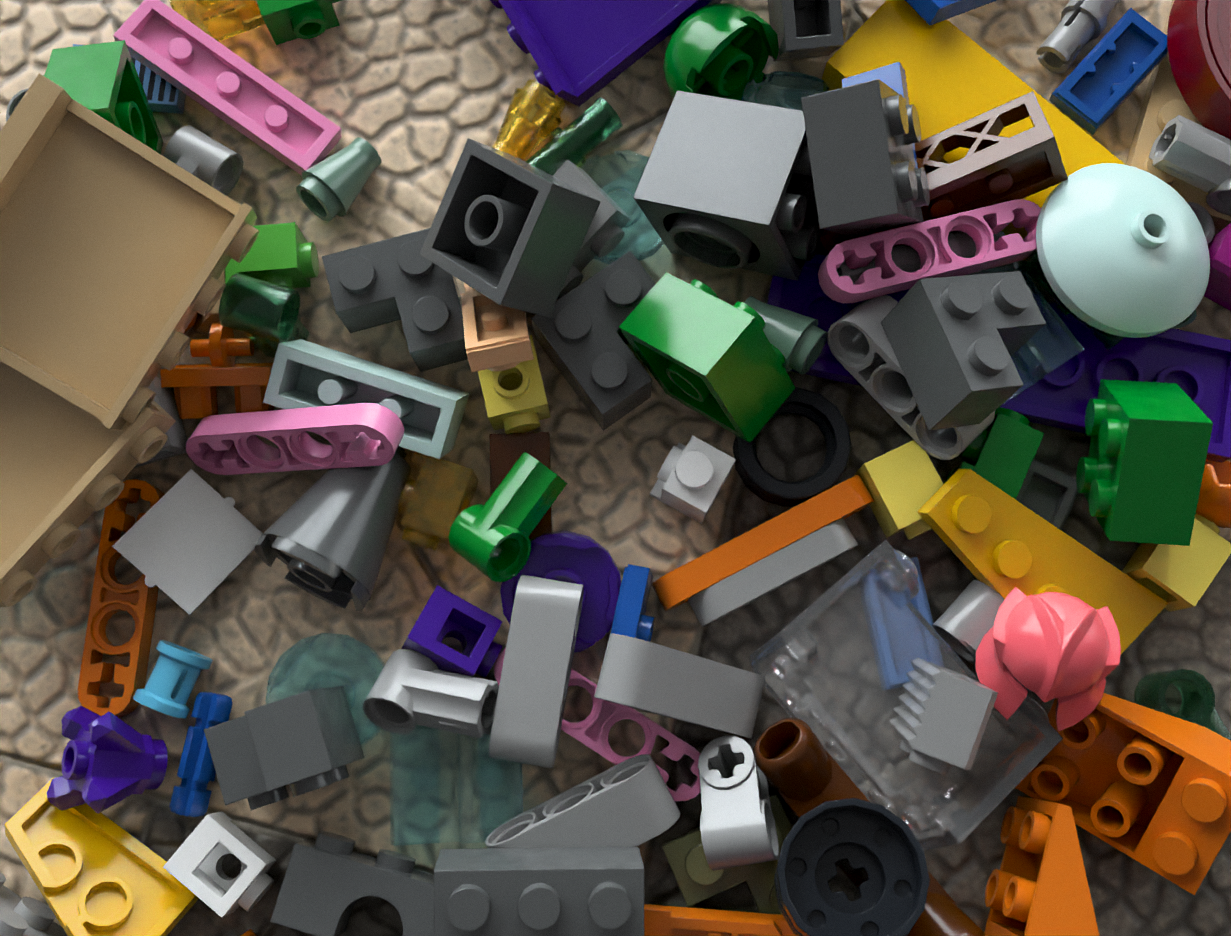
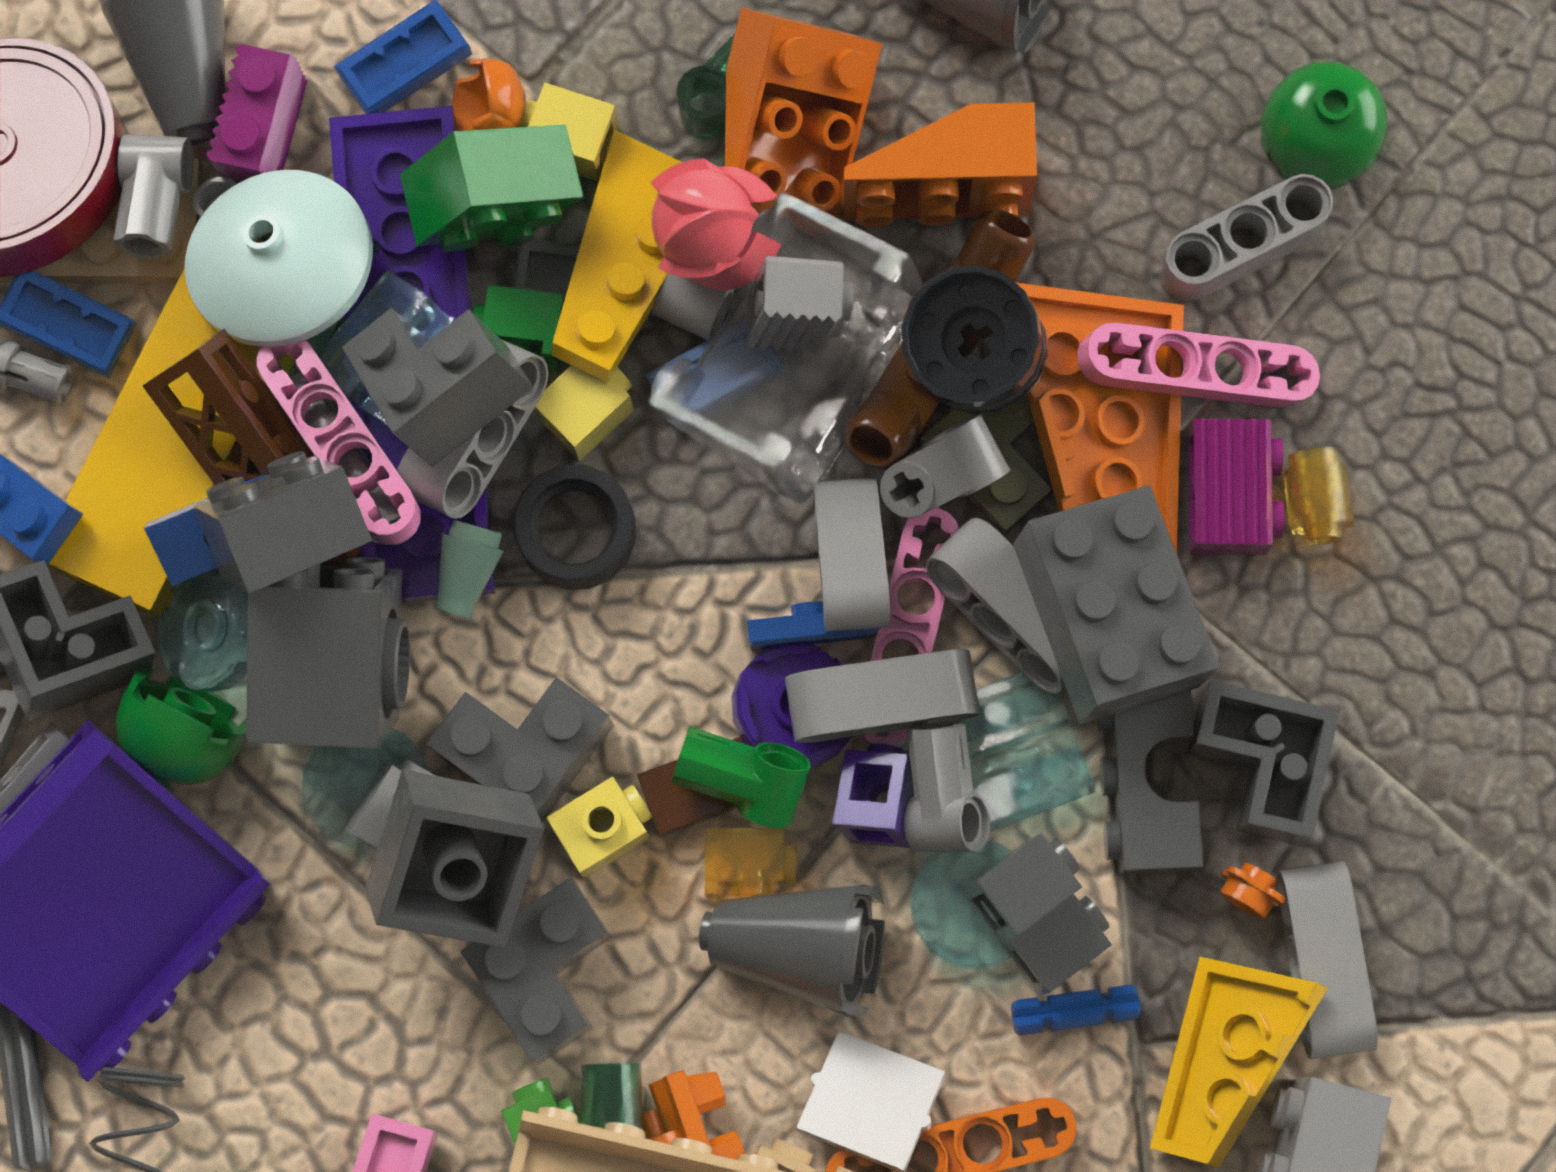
camera: 105 degrees left, 0 degrees up
(105, 762) = (1115, 1092): dark purple rock -> none
(172, 679) = (1013, 1064): medium azure bush -> none
(200, 860) = (1163, 967): white brick -> none
(321, 376) = (664, 964): light aqua brick -> none
(336, 181) = (431, 1095): sand green cone -> none
(357, 433) = (718, 957): bright pink beam -> none
(493, 333) = (569, 844): light nougat hinge -> none
(529, 119) = (305, 913): clear yellow cone -> none
(577, 138) = (315, 858): clear green pin -> none
(692, 478) = (639, 612): white brick -> none
(709, 354) = (514, 626): green brick -> none
(760, 542) = (683, 526): orange beam -> none
(772, 572) = (708, 506): light grey beam -> none

